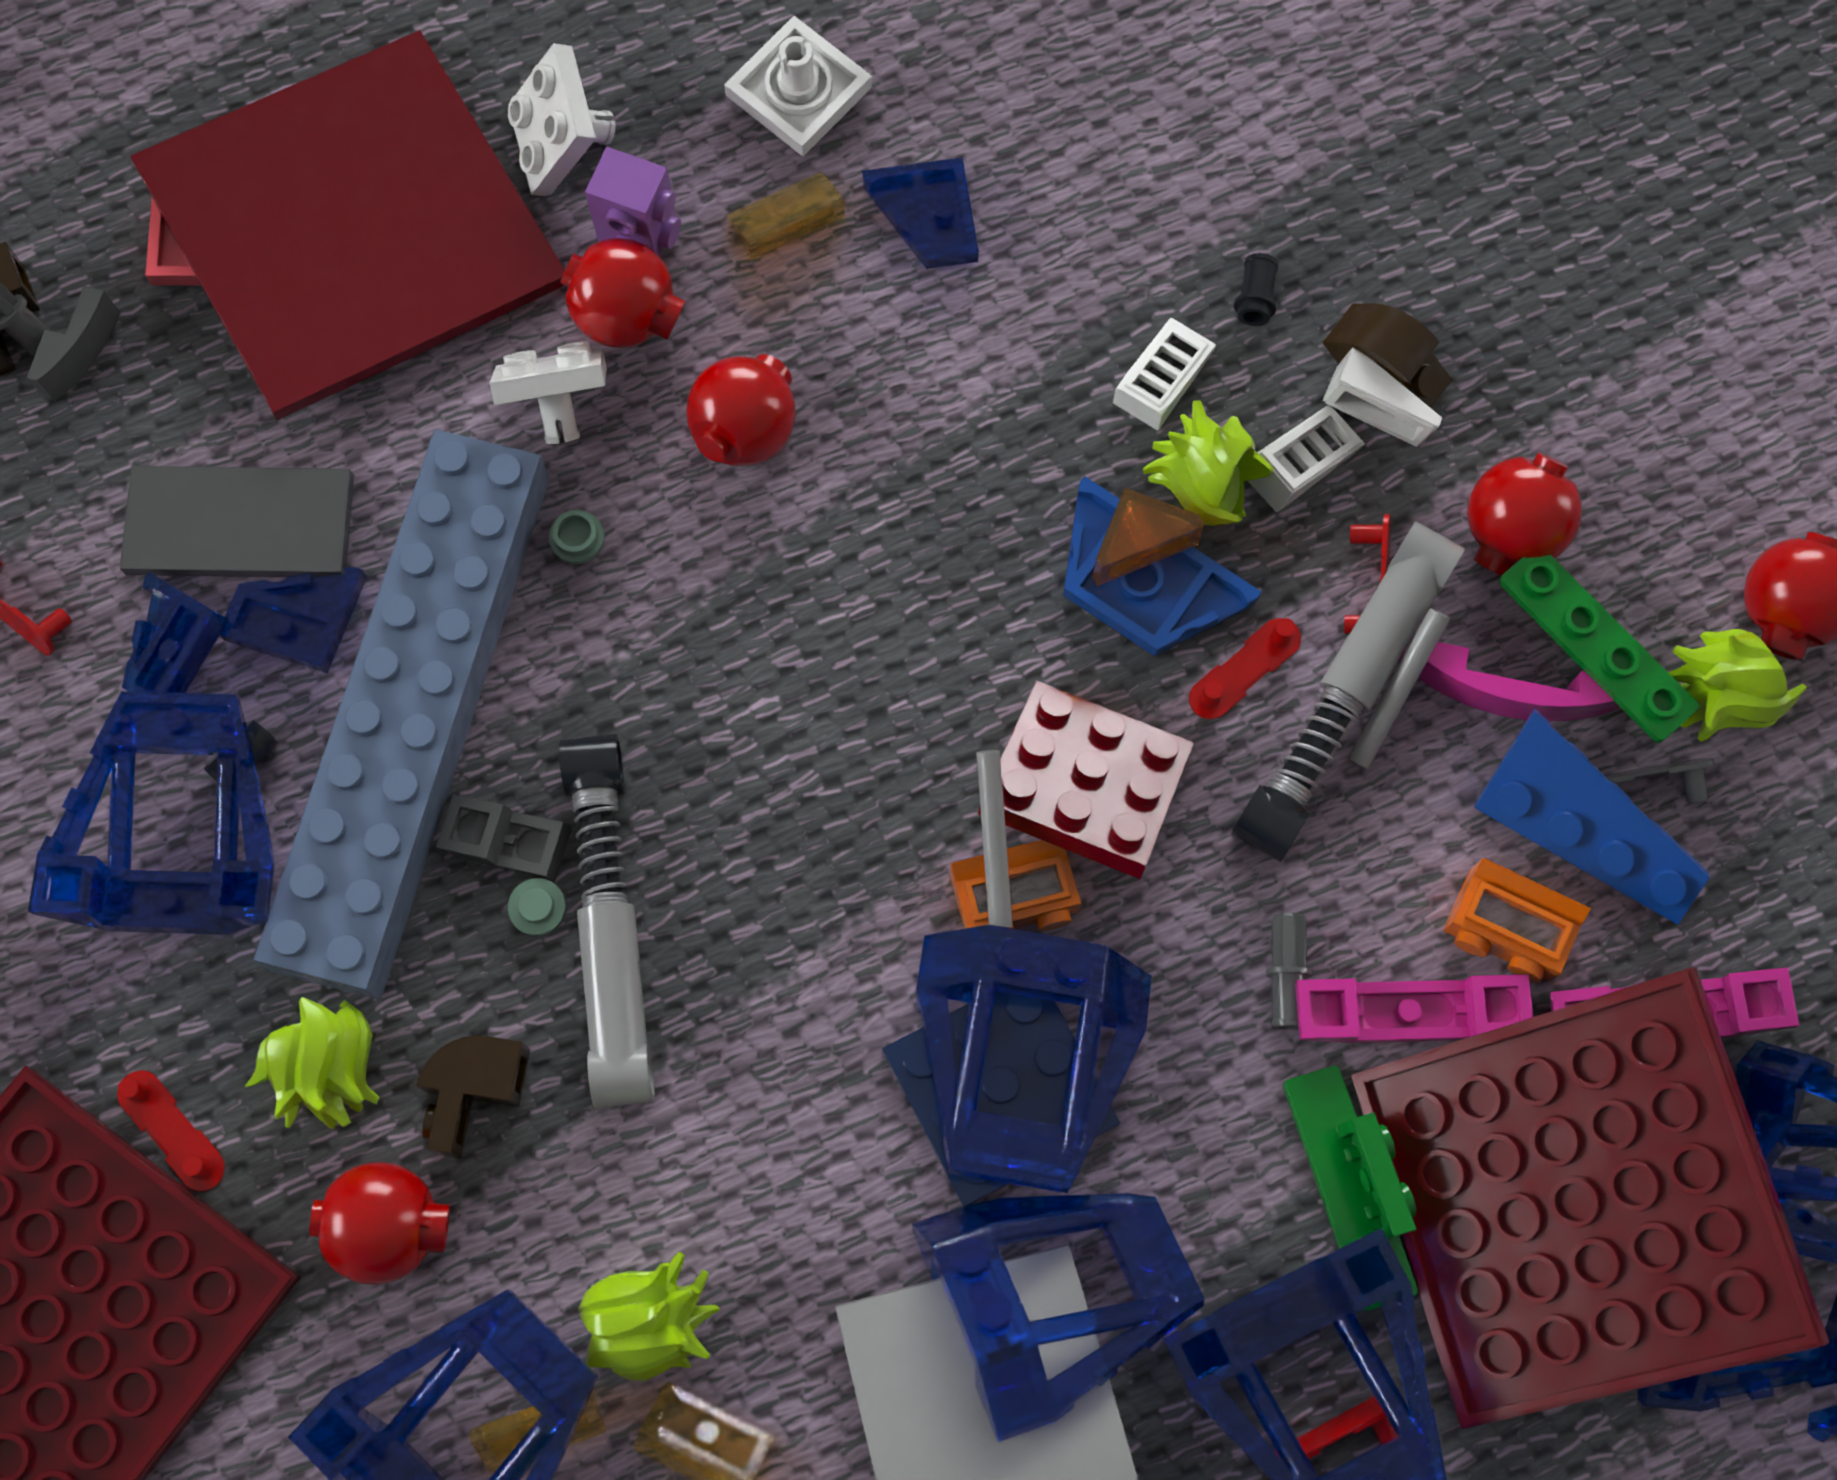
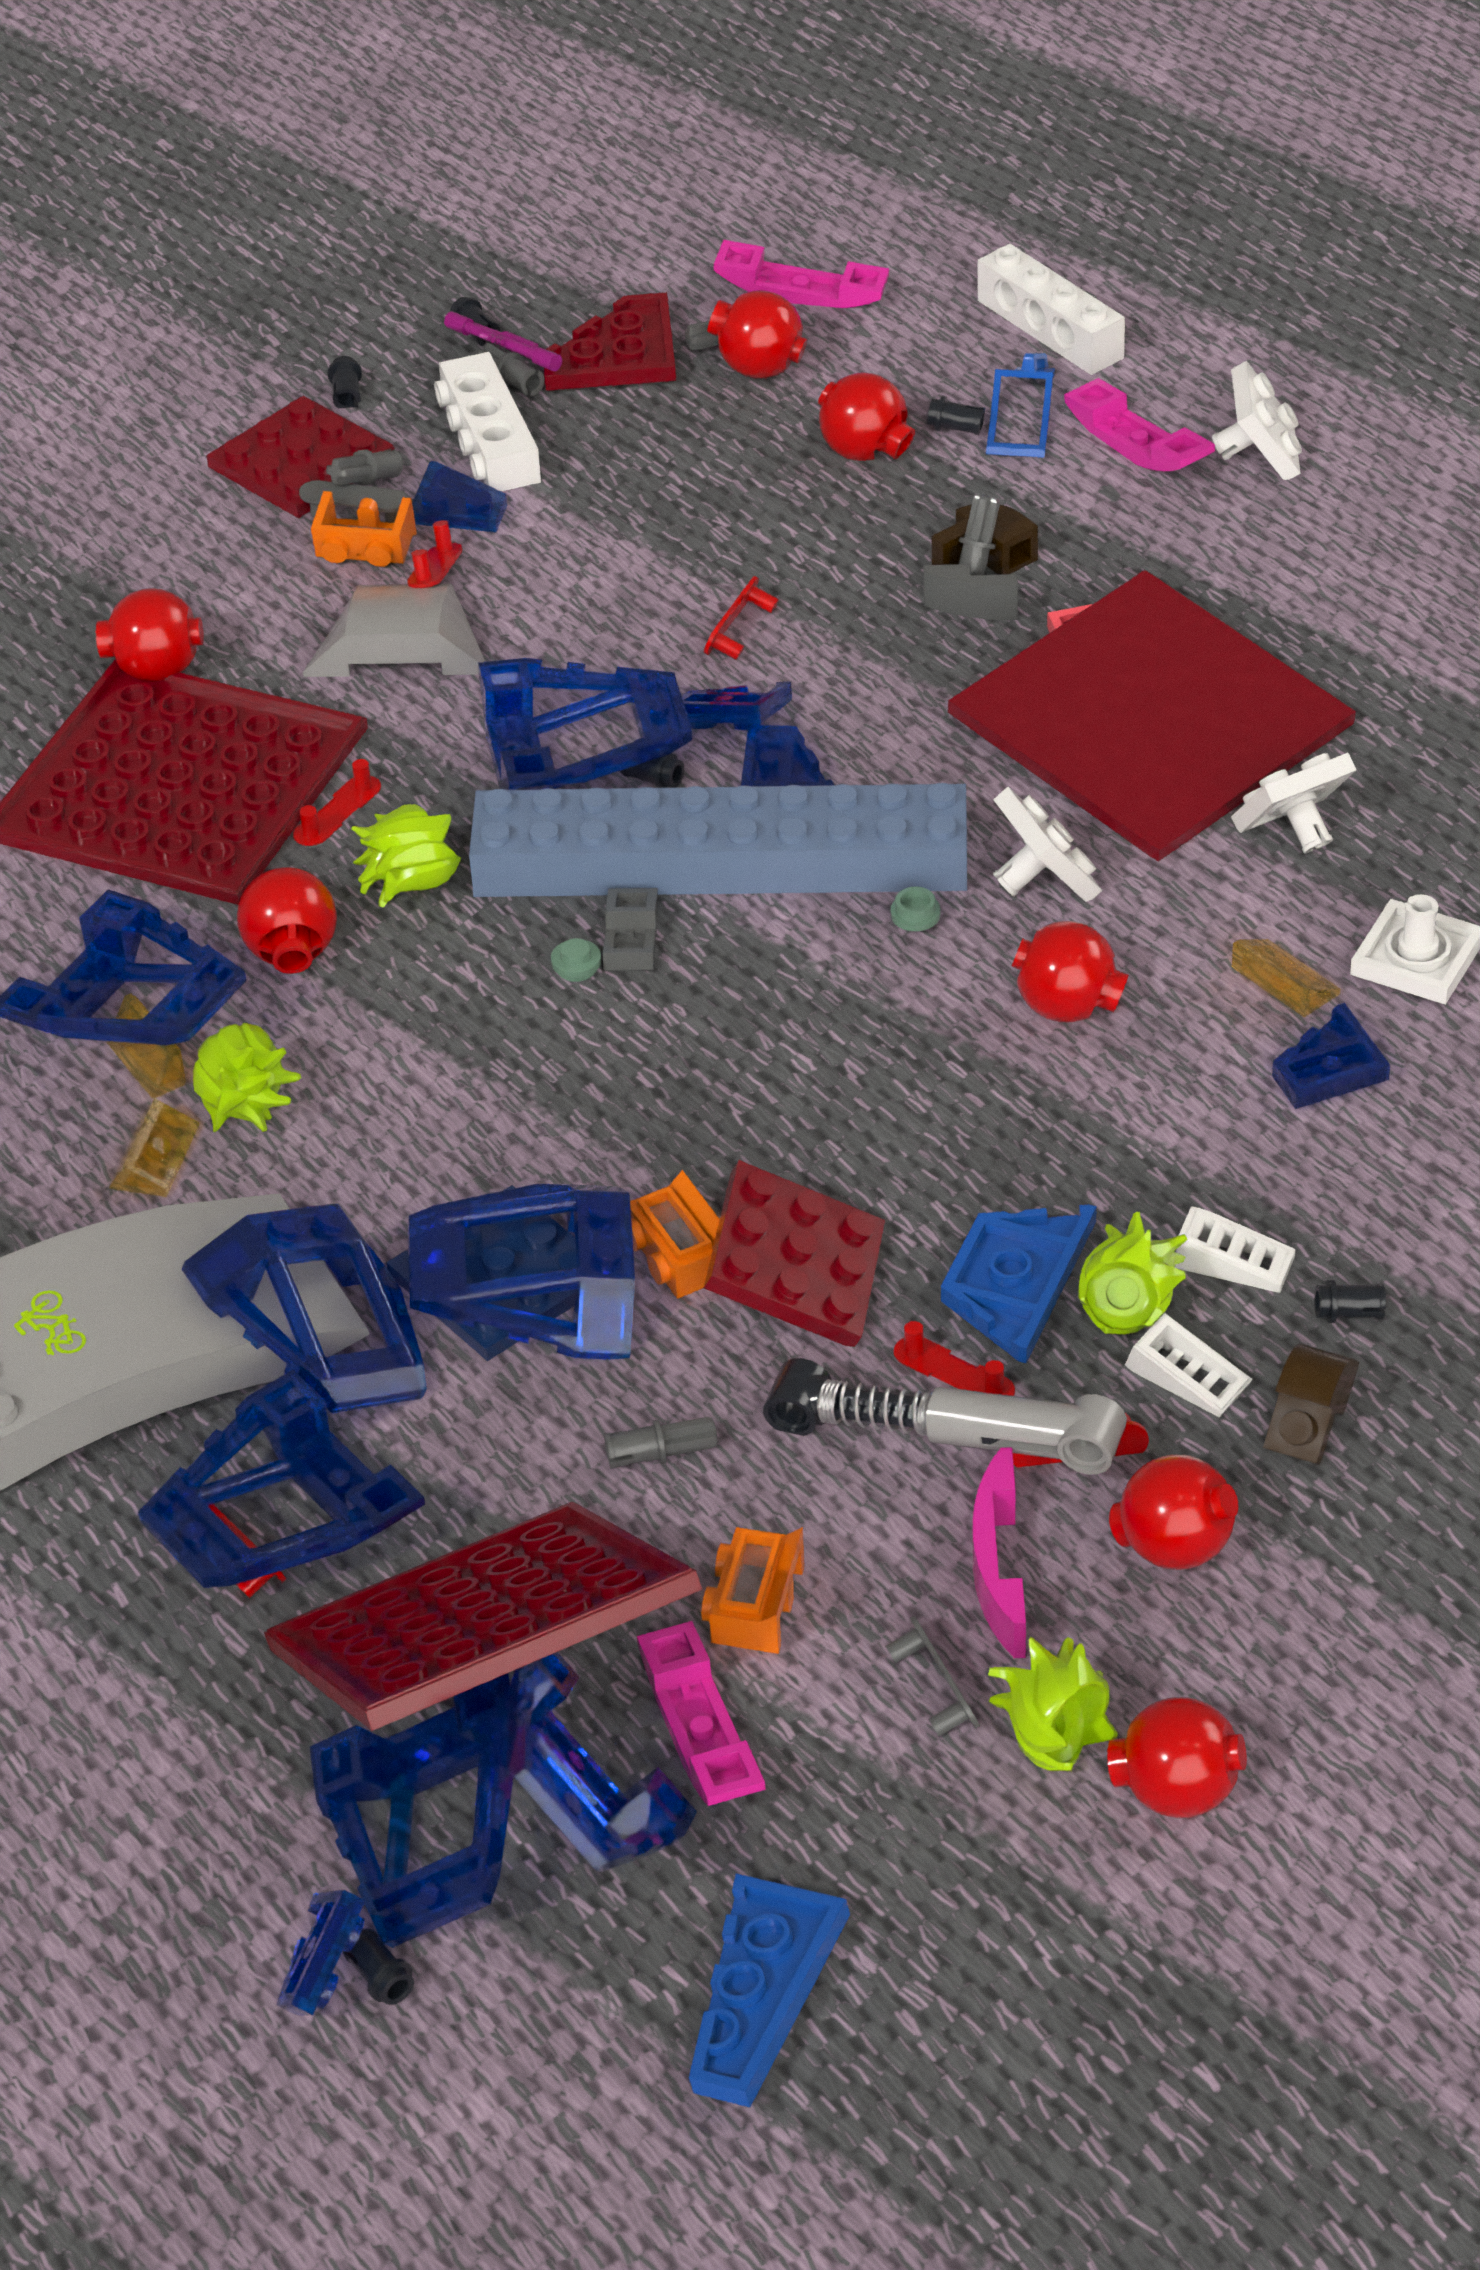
camera: 80 degrees right, 30 degrees down
(237, 521) = (855, 721): dark grey tile -> none
(468, 1071) = (415, 940): dark brown brick -> none
(609, 950) = (456, 1029): light grey piece -> none
(621, 293) = (1144, 870): red brick -> none
(633, 201) = (1229, 855): medium lavender brick -> none
(994, 838) = (705, 1174): light grey bar -> none
(1143, 534) = (1035, 1232): clear orange slope -> none
(1351, 1163) = (470, 1515): green bracket -> none
(1379, 399) = (1260, 1398): white slope -> none
(1399, 687) = (958, 1451): light grey bar -> none
(1409, 1009) = (638, 1499): dark pink slope -> none
(1574, 811) = (872, 1626): blue wing -> none
(1599, 645) = (1057, 1589): green bracket -> none

